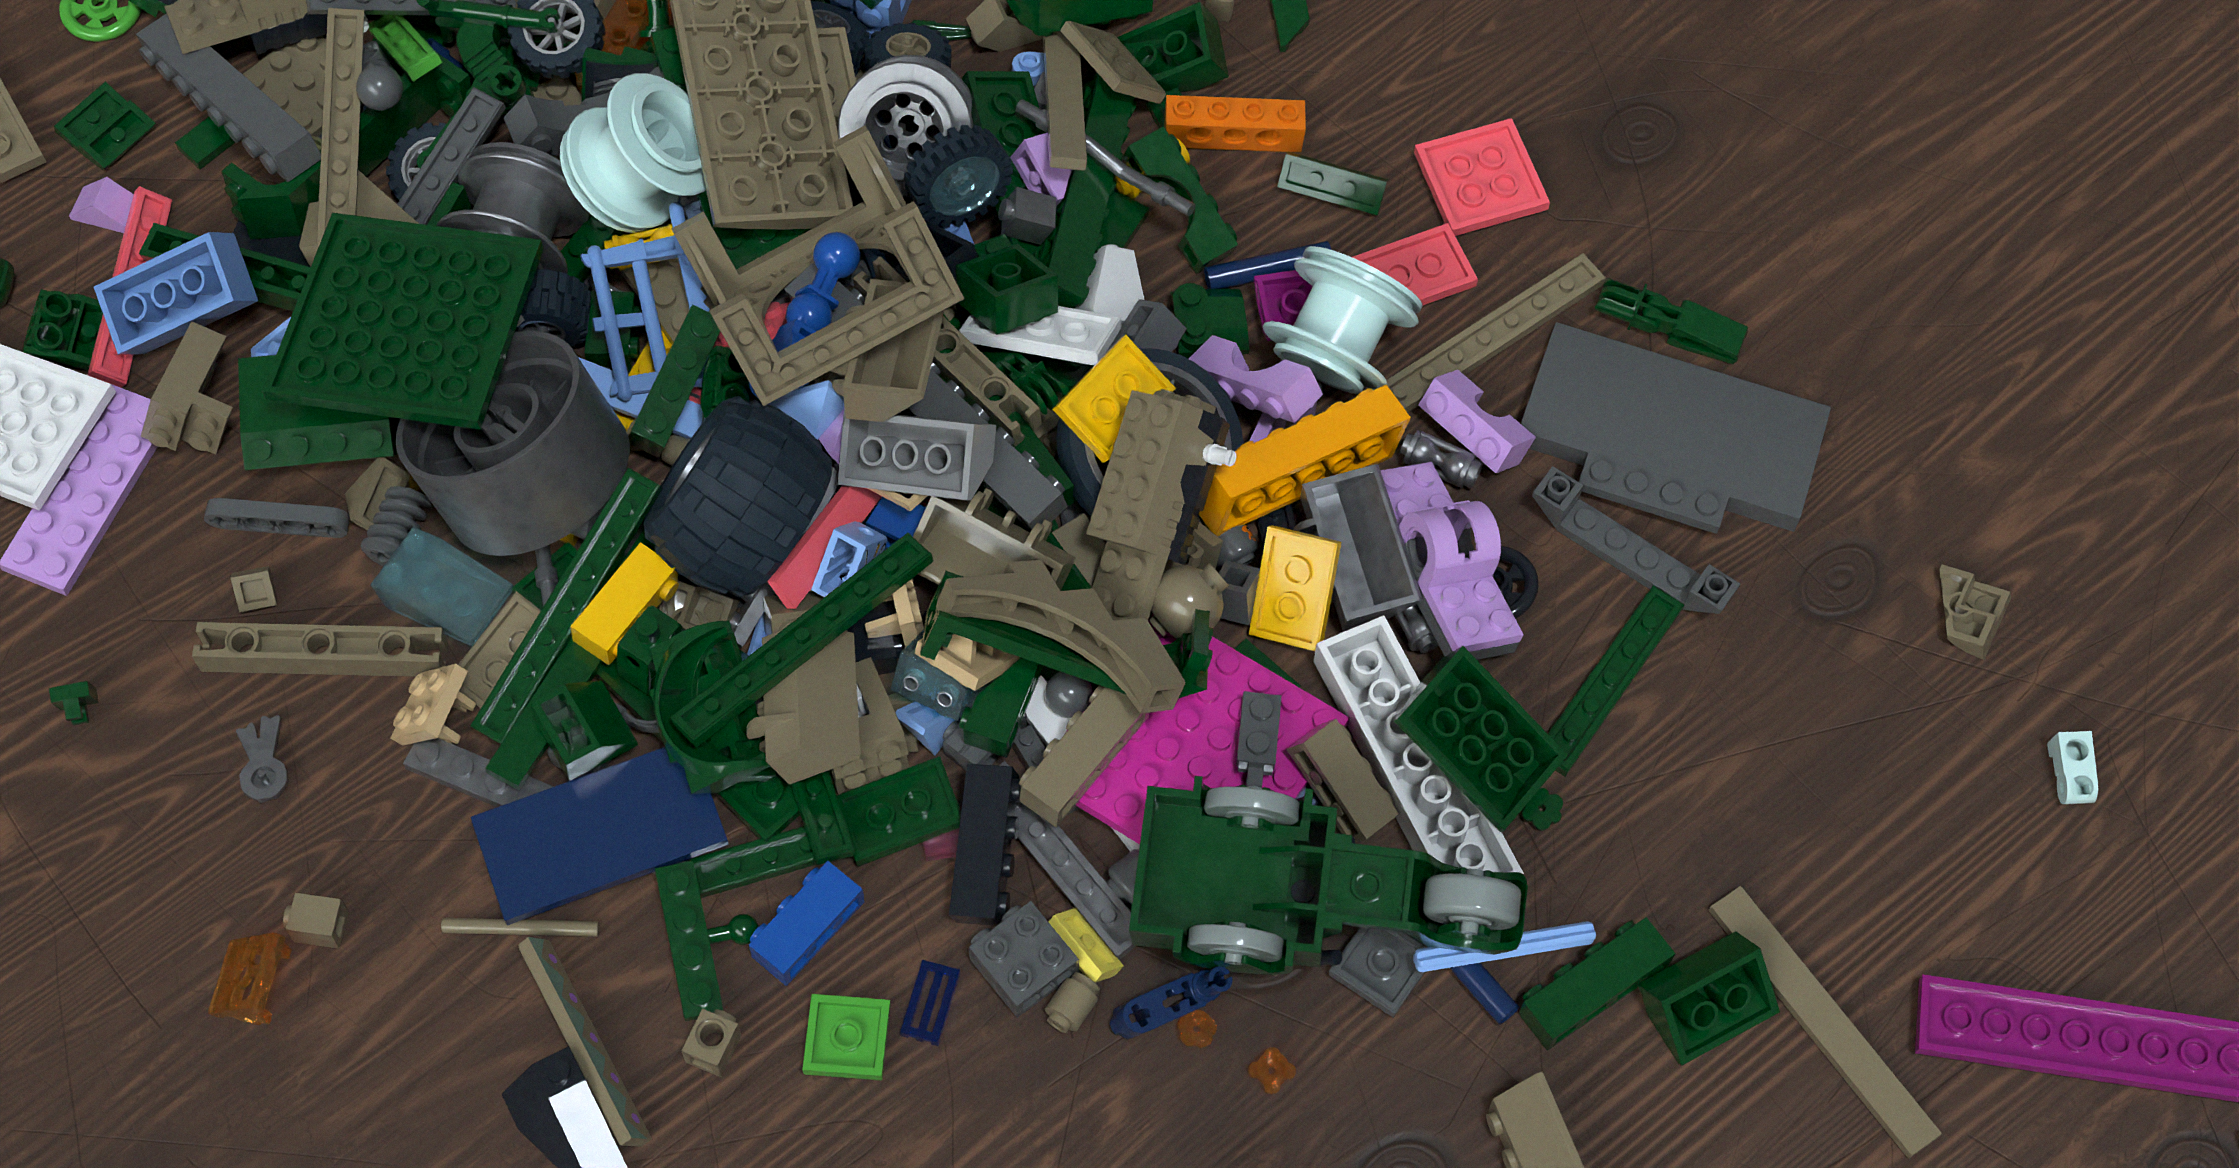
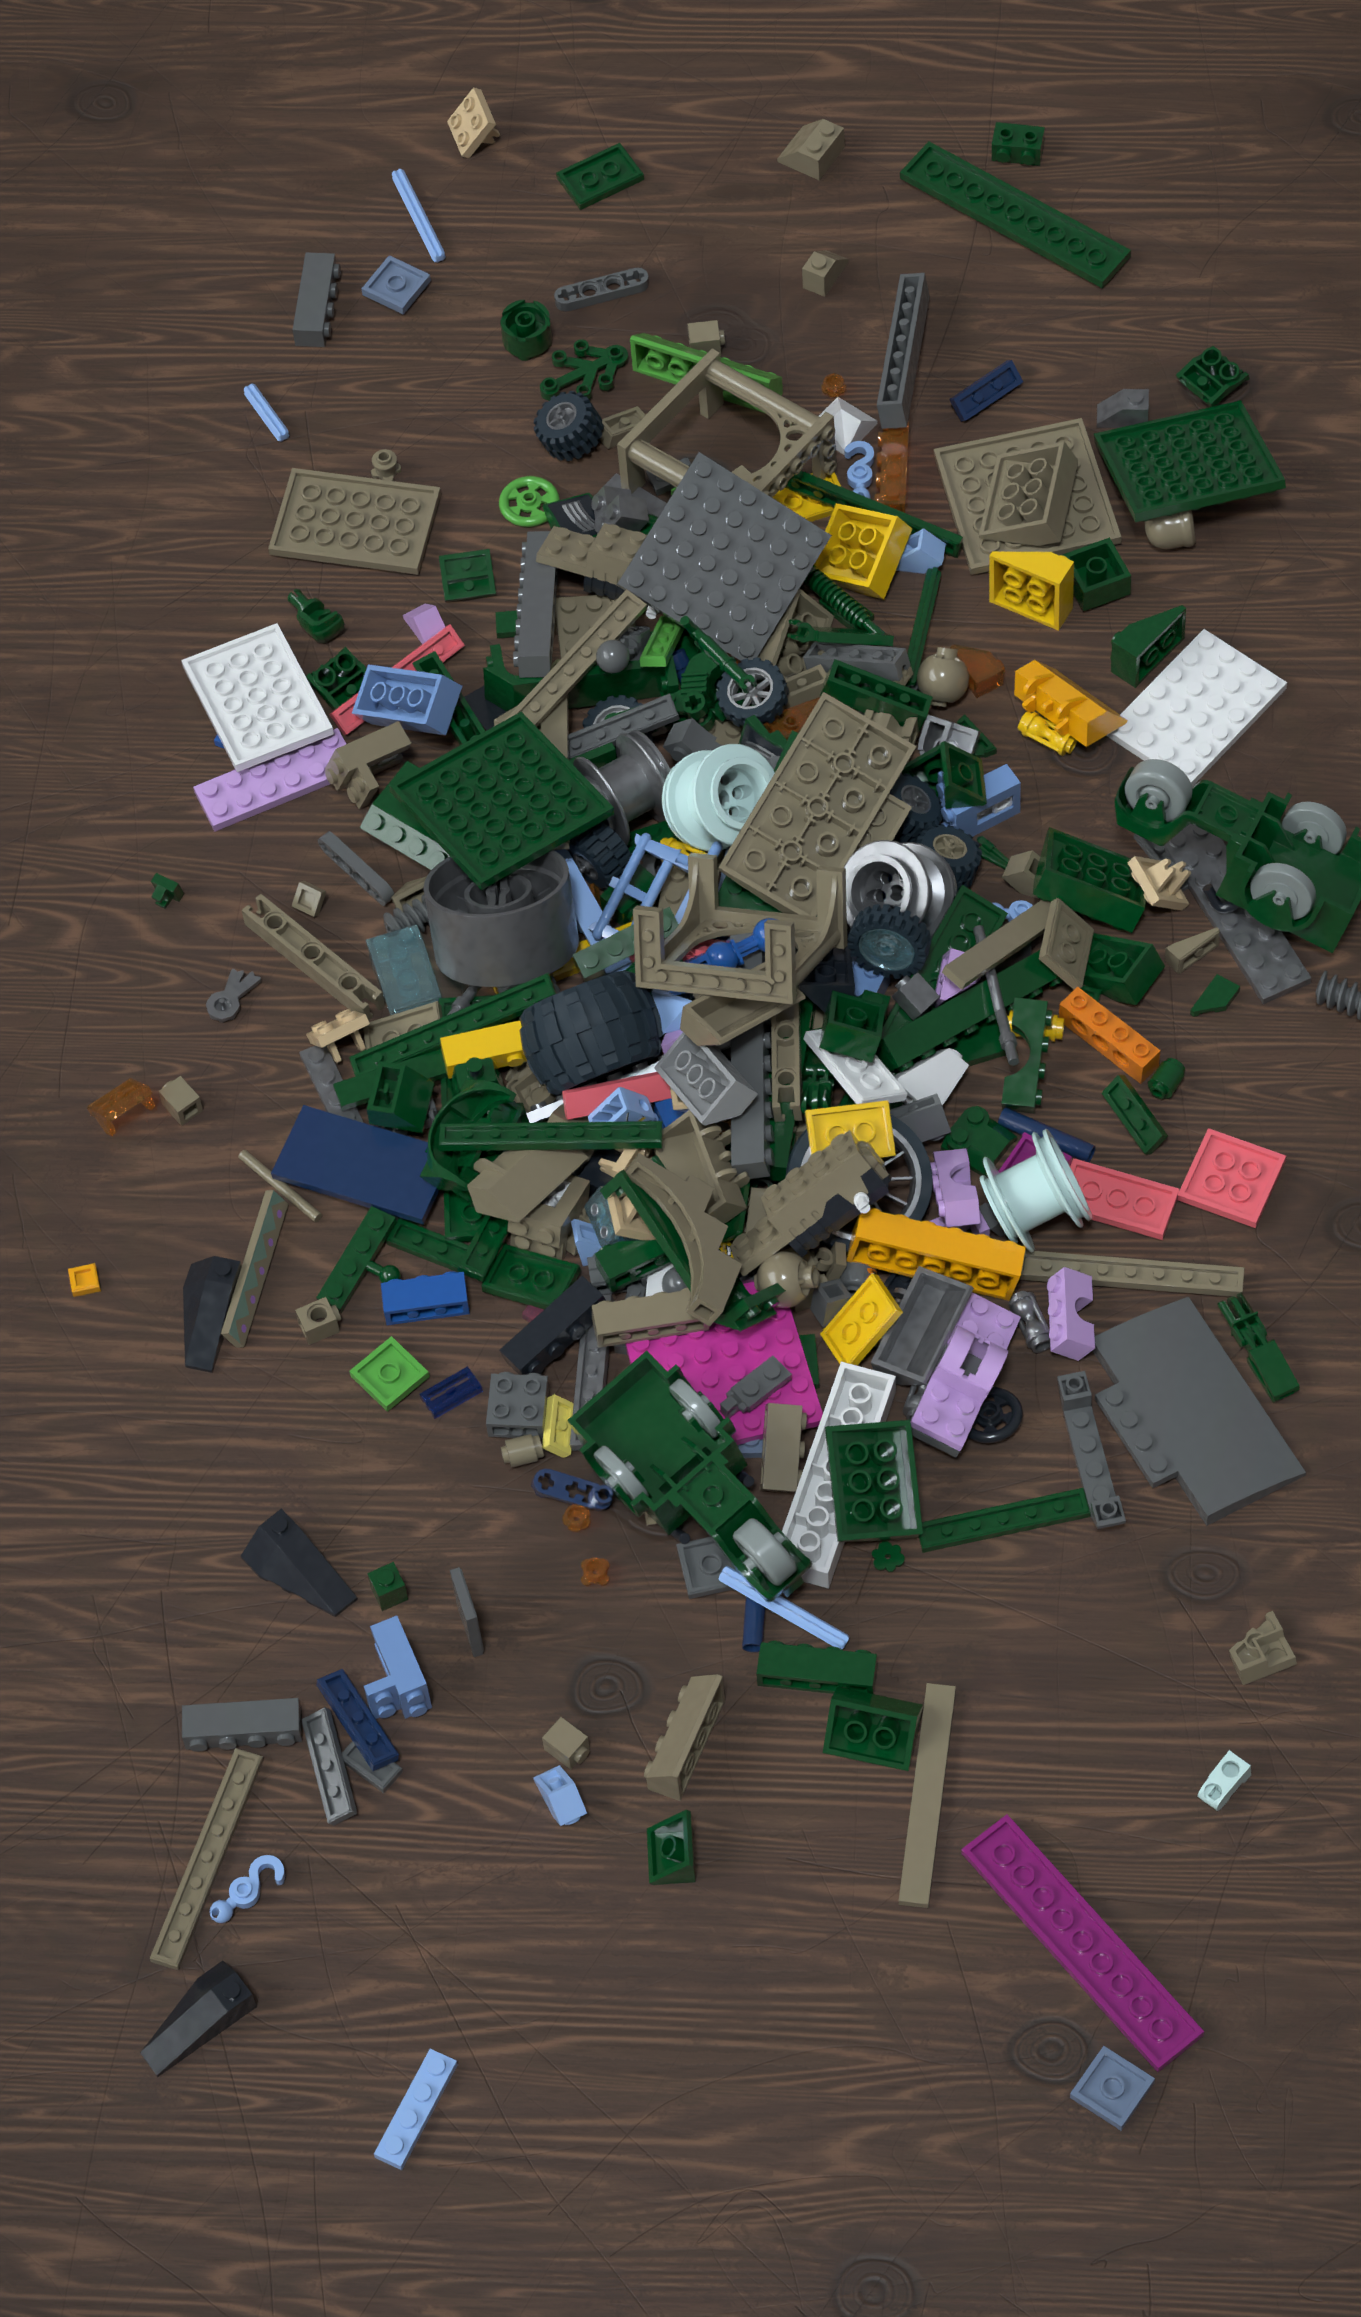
camera: 50 degrees right, 5 degrees down
(1327, 126) = (1166, 1078): none -> dark green brick

